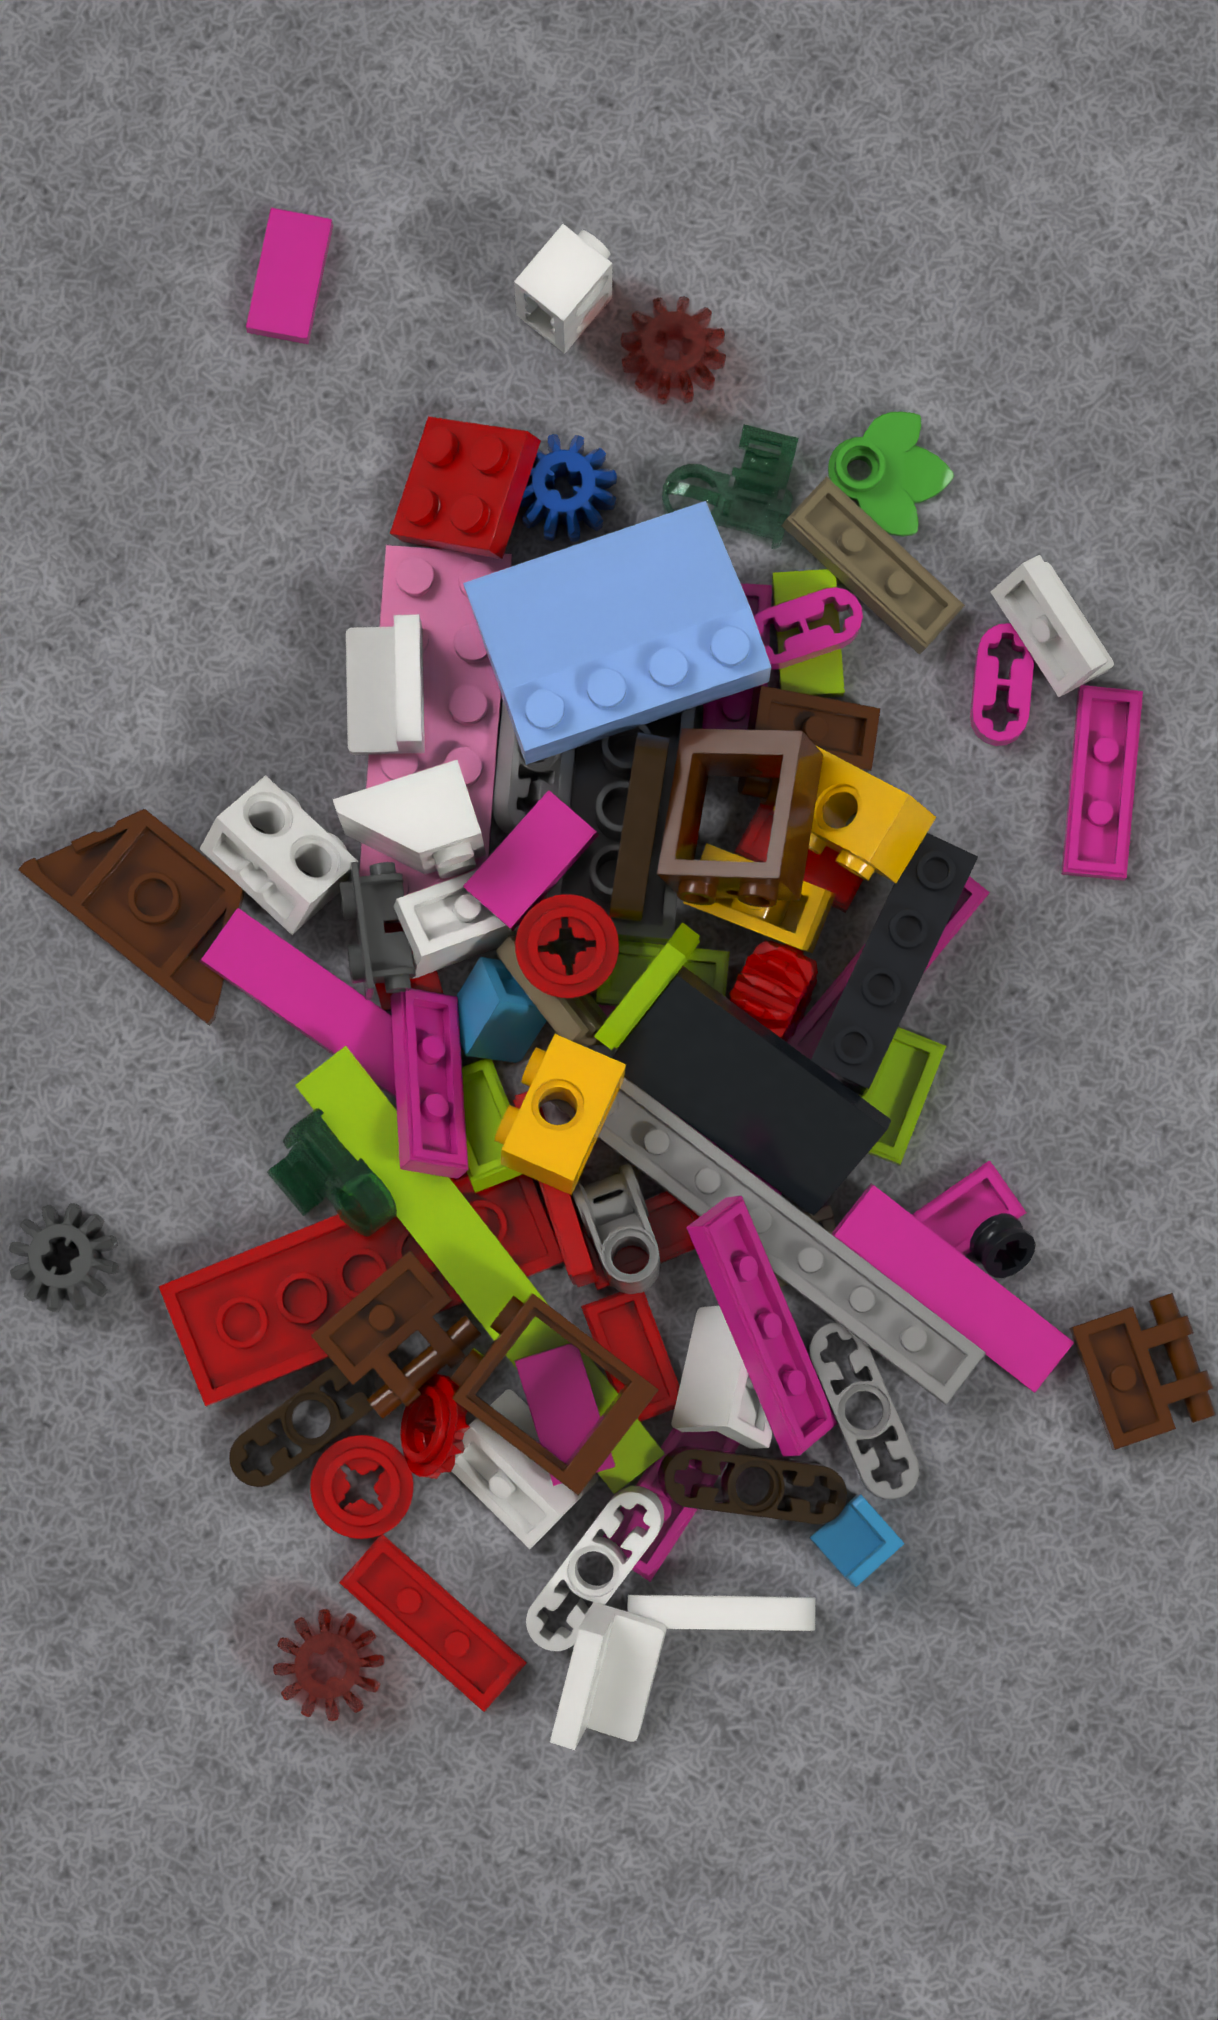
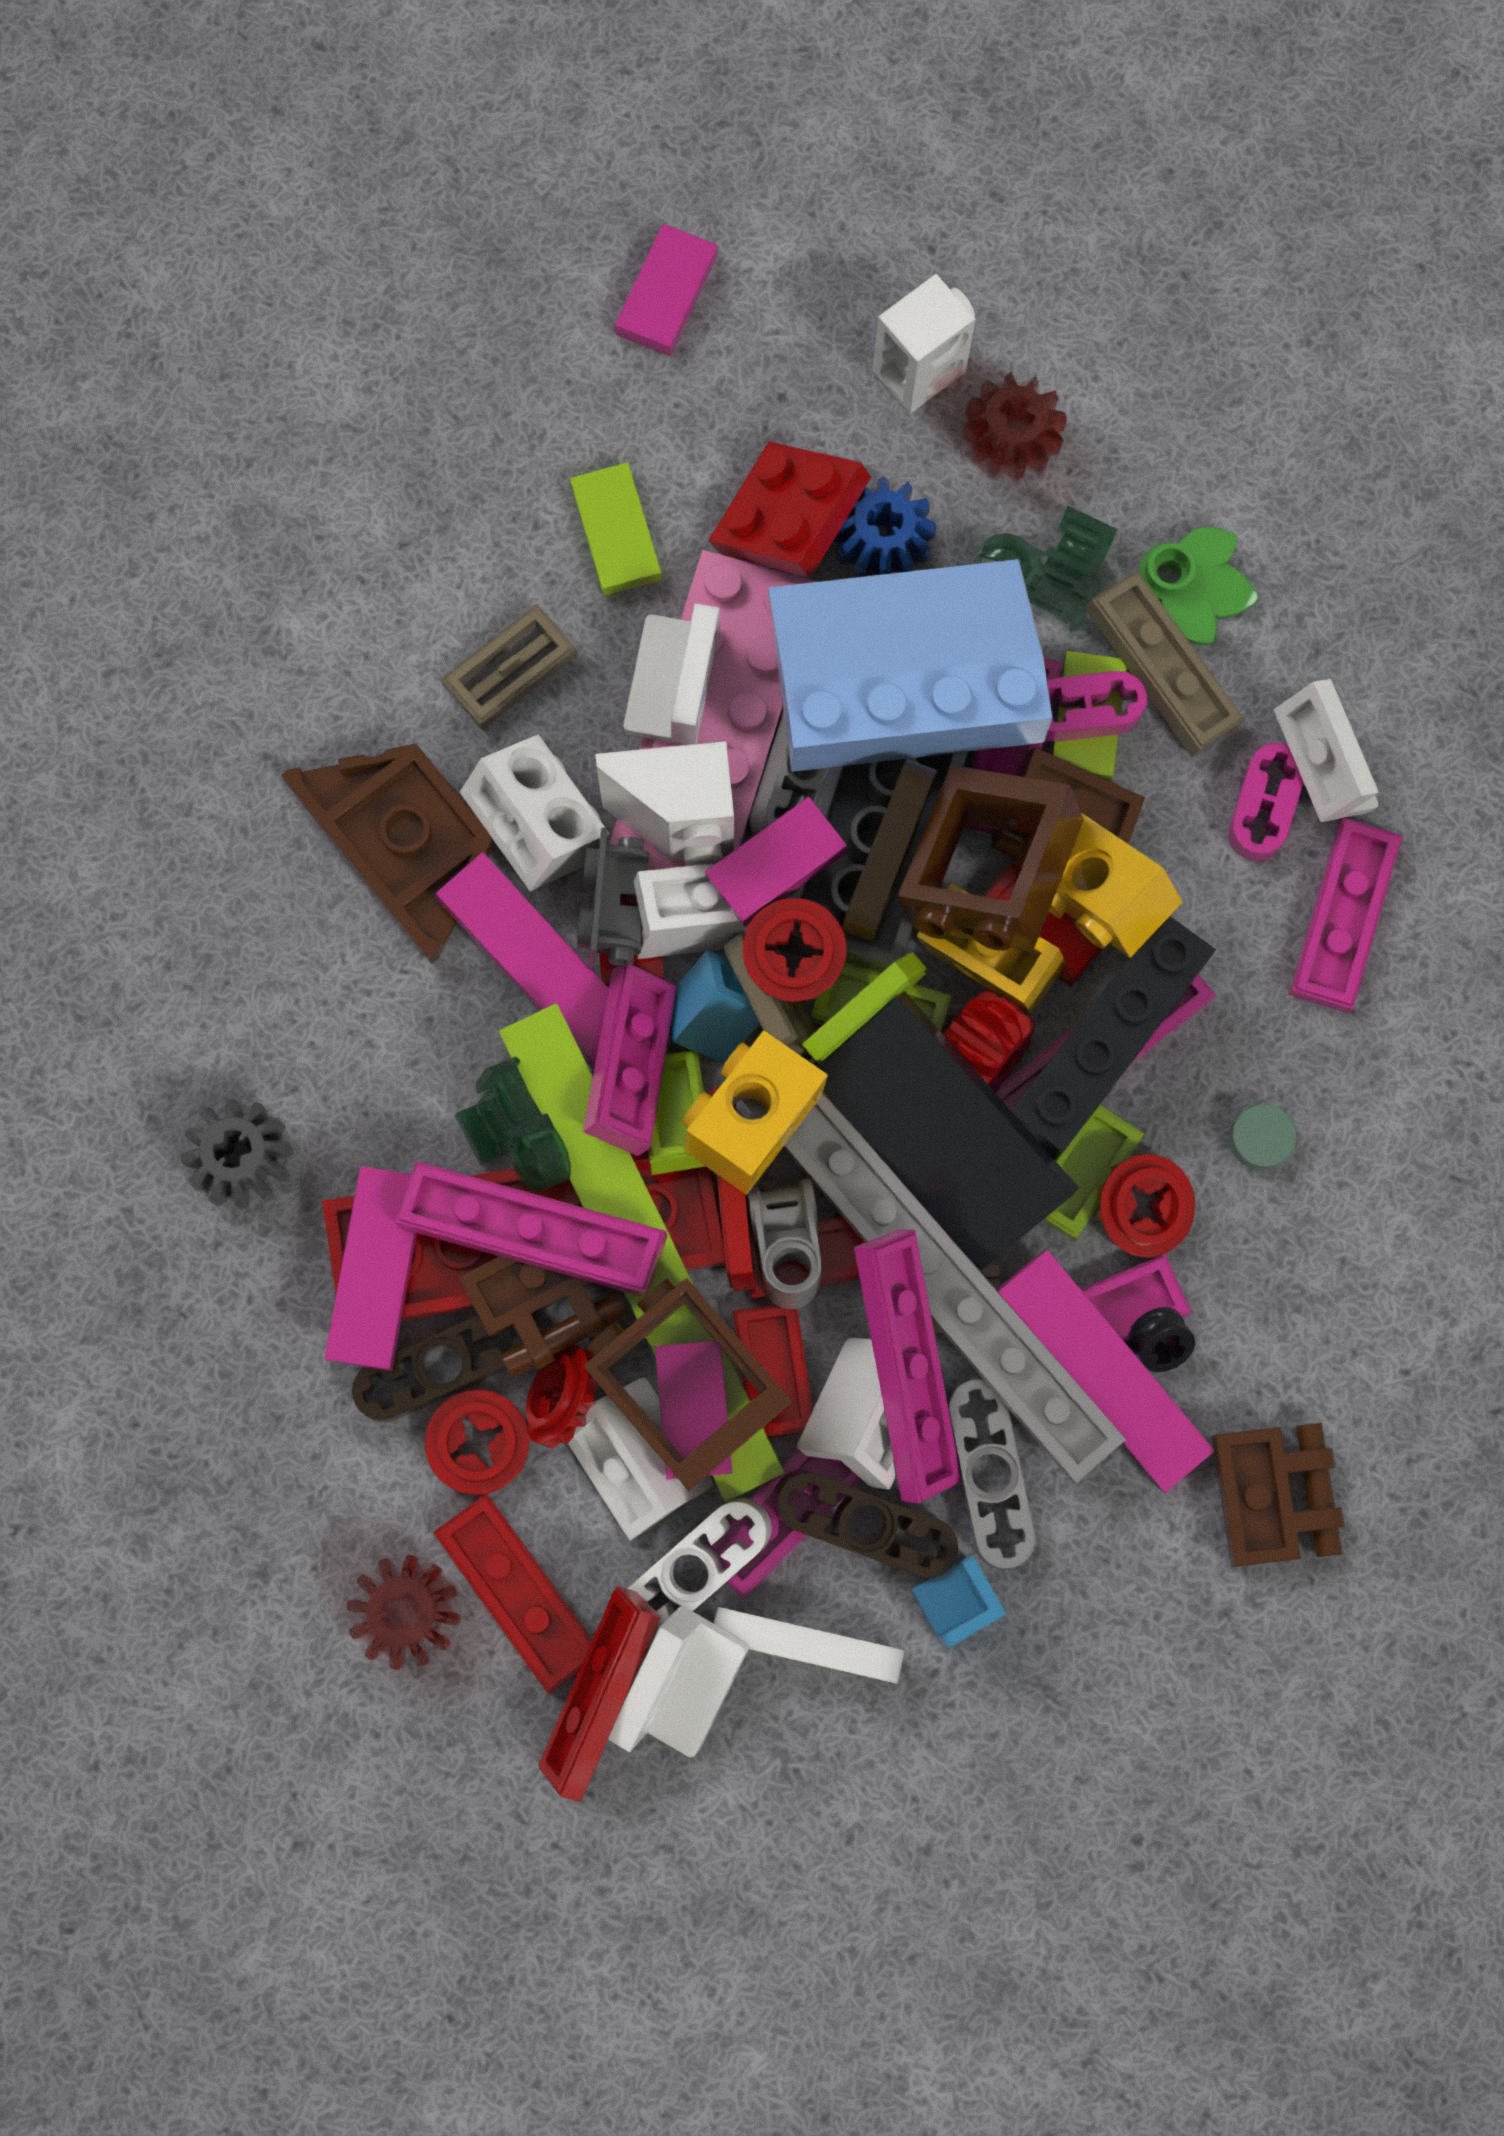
camera: 10 degrees right, 5 degrees down
(227, 1342) = (372, 1274): none -> dark pink tile
(238, 720) = (521, 686): none -> dark tan tile
(293, 540) = (615, 529): none -> lime tile
(370, 1274) = (531, 1229): none -> dark pink tile
(532, 1700) = (598, 1693): none -> red tile
(987, 1111) = (1171, 1207): none -> red gear
(1062, 1023) = (1262, 1137): none -> sand green tile

